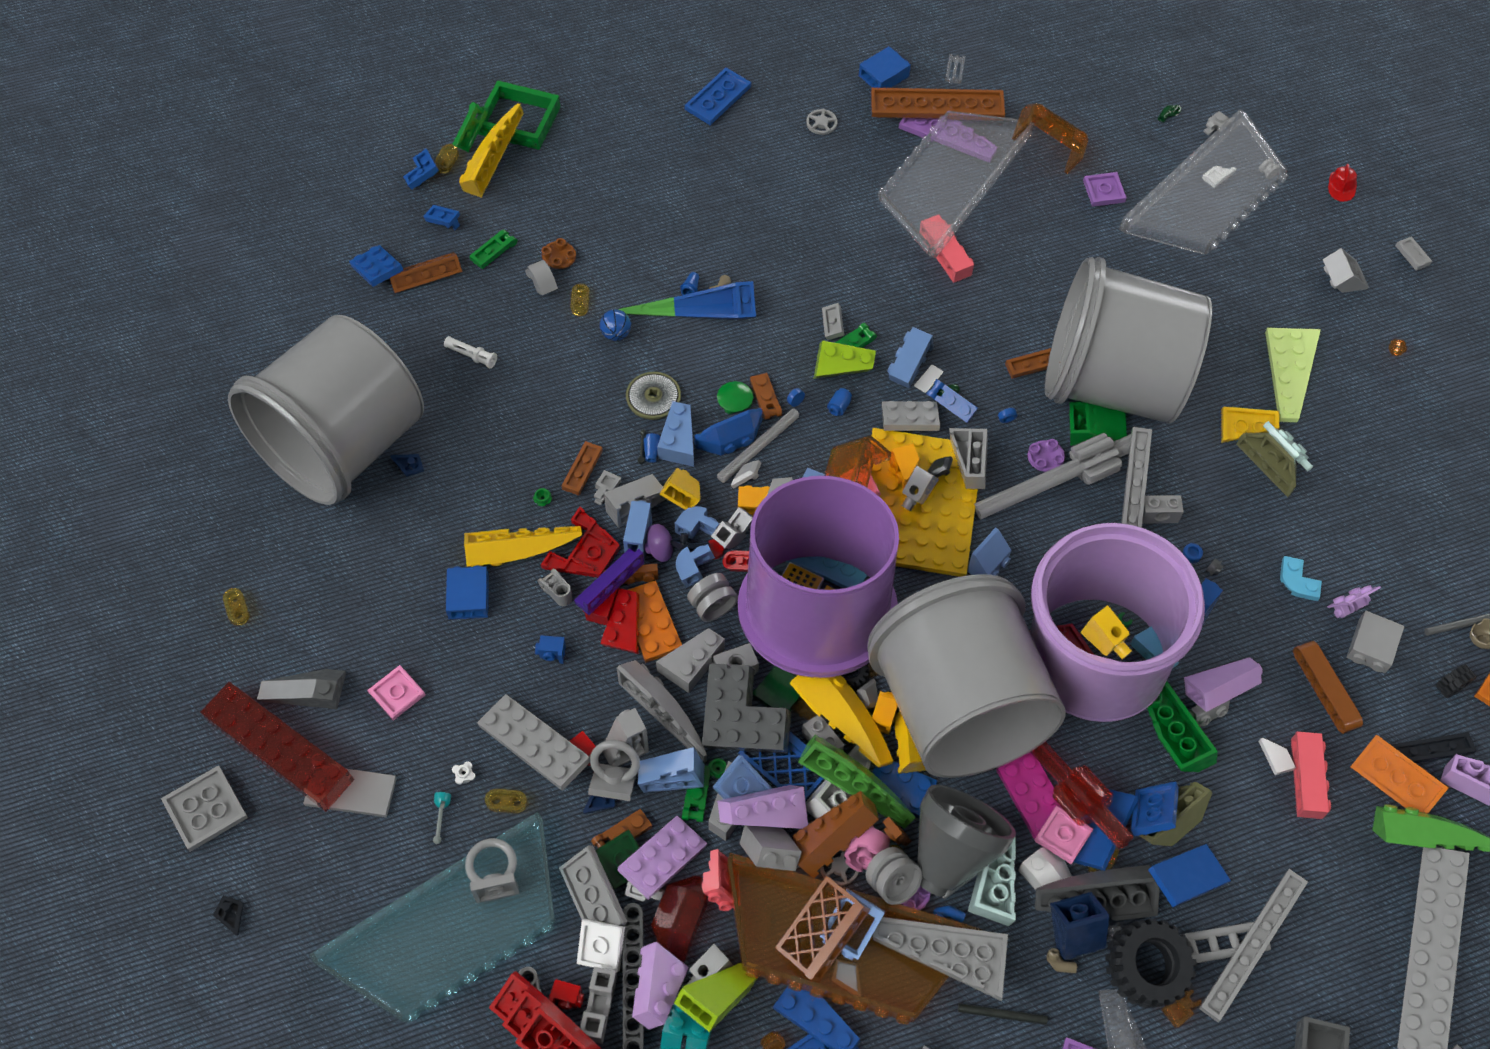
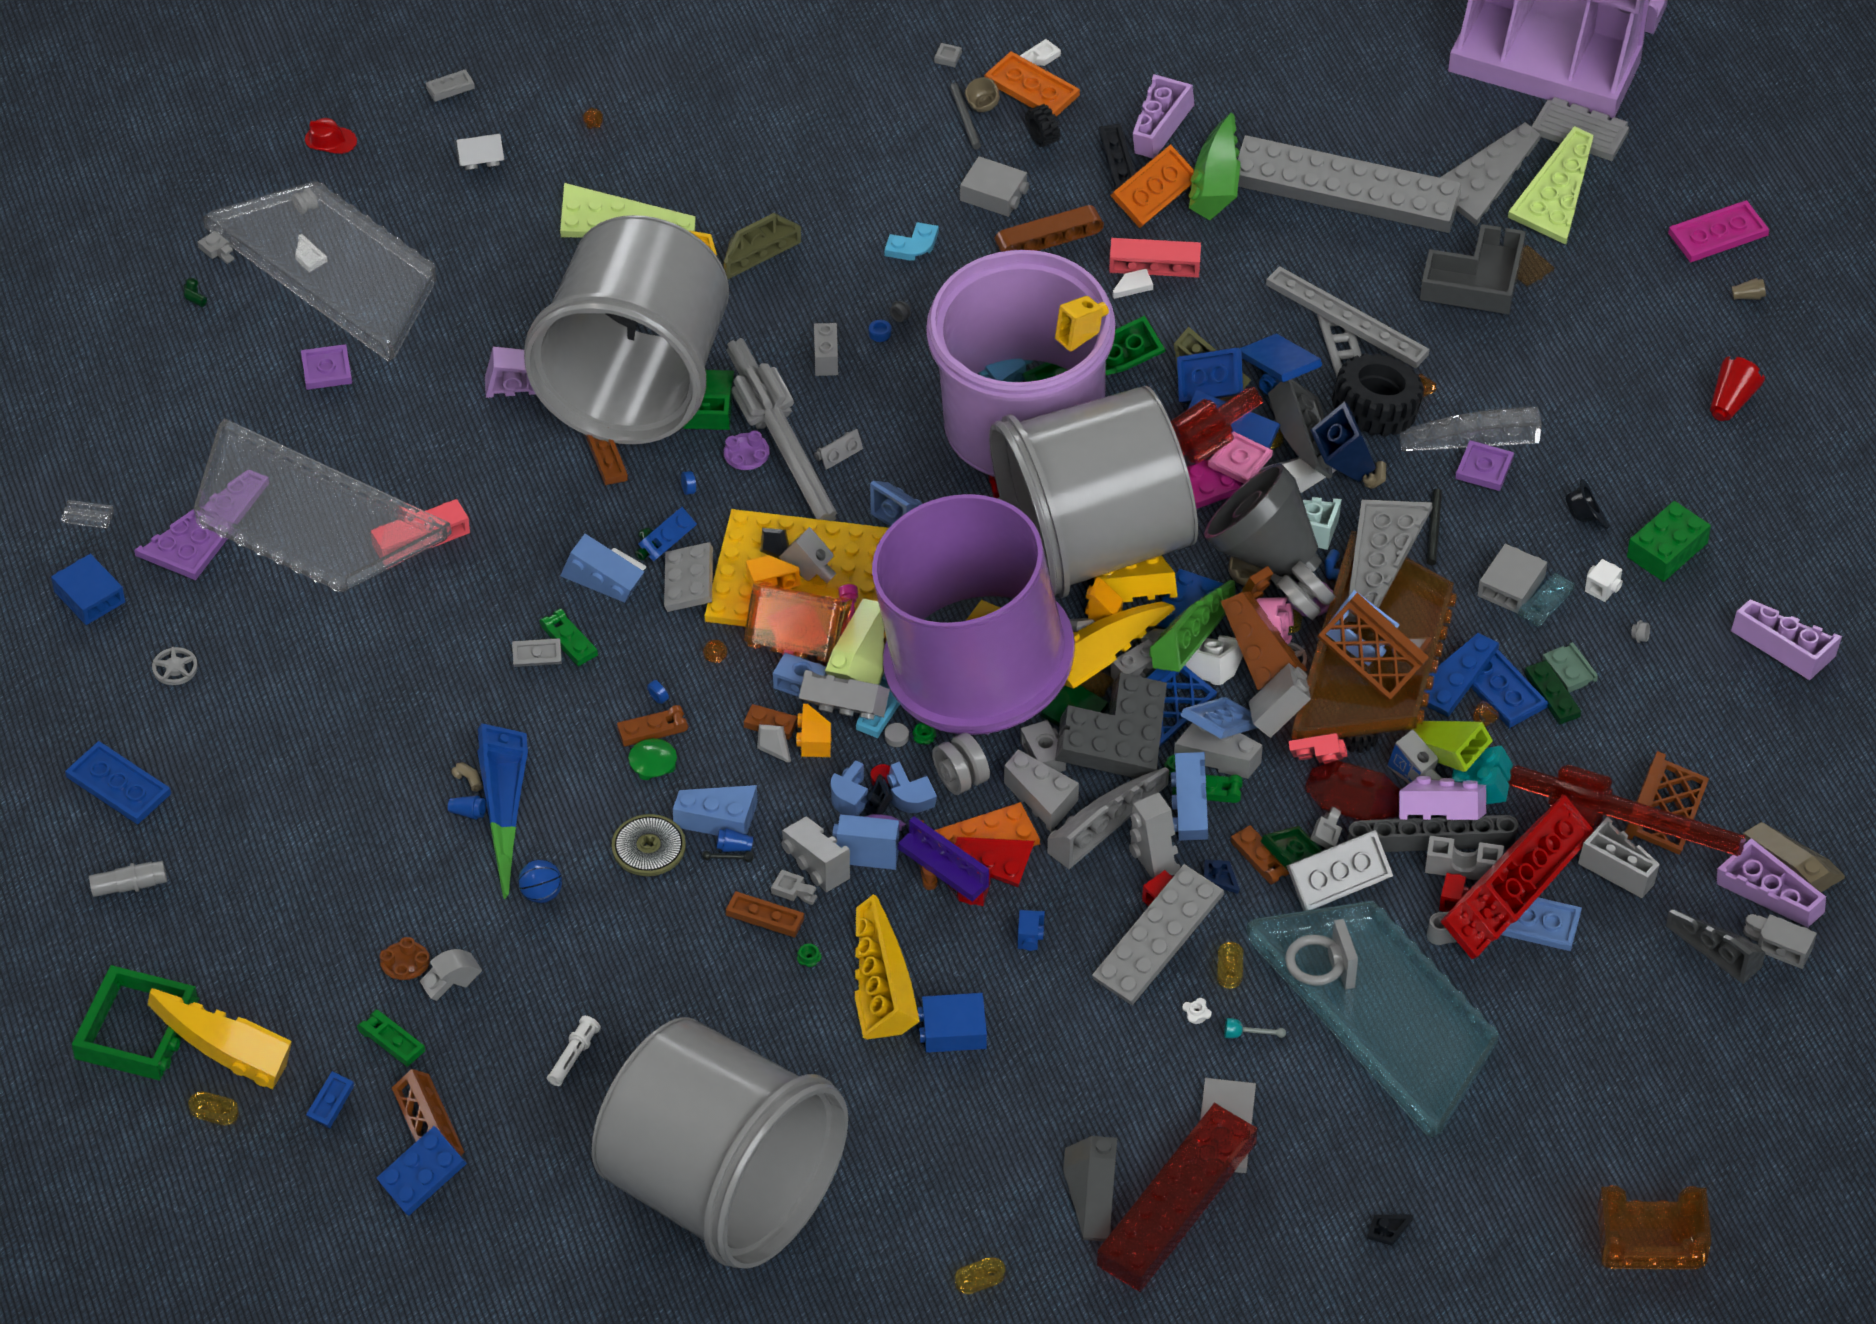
camera: 90 degrees left, 10 degrees down
(204, 808) = (1259, 1270): light grey plate -> none
(396, 692) = (1094, 1087): bright pink plate -> none
(425, 169) = (236, 1127): blue plate -> none
(470, 127) = (169, 1066): green plate -> none
(554, 585) = (940, 932): light grey piece -> none
(580, 295) = (483, 933): clear yellow plate -> none
(591, 553) = (899, 897): red wing -> none
(600, 945) = (1398, 858): white tile -> none
(613, 780) = (1203, 853): light grey tile -> none
(635, 104) = (128, 878): none -> light grey piece
(662, 857) = (1291, 808): lavender plate -> none
(682, 489) = (804, 799): yellow torso -> none
(730, 433) = (712, 751): blue wedge -> none
(733, 532) = (858, 748): light grey brick -> none
(741, 558) = (905, 743): red plate -> none
(758, 445) = (728, 733): light grey axle -> none
(768, 808) = (1235, 699): lavender wedge -> none
(770, 470) = (766, 716): none -> dark orange plate
(838, 431) = (712, 647): none -> clear orange plate
(839, 402) = (666, 647): blue brick -> none
(842, 359) = (607, 639): lime wedge -> none
(935, 102) = (167, 527): dark orange plate -> none
(971, 455) = (762, 507): light grey wedge -> none
(1051, 519) = (839, 449): none -> light grey hinge
(1055, 127) = (231, 416): clear orange windscreen -> none
(1136, 476) = (824, 364): light grey plate -> none
(1285, 439) = (731, 227): light aqua plate -> none
(1357, 599) = (943, 194): lavender hinge -> none

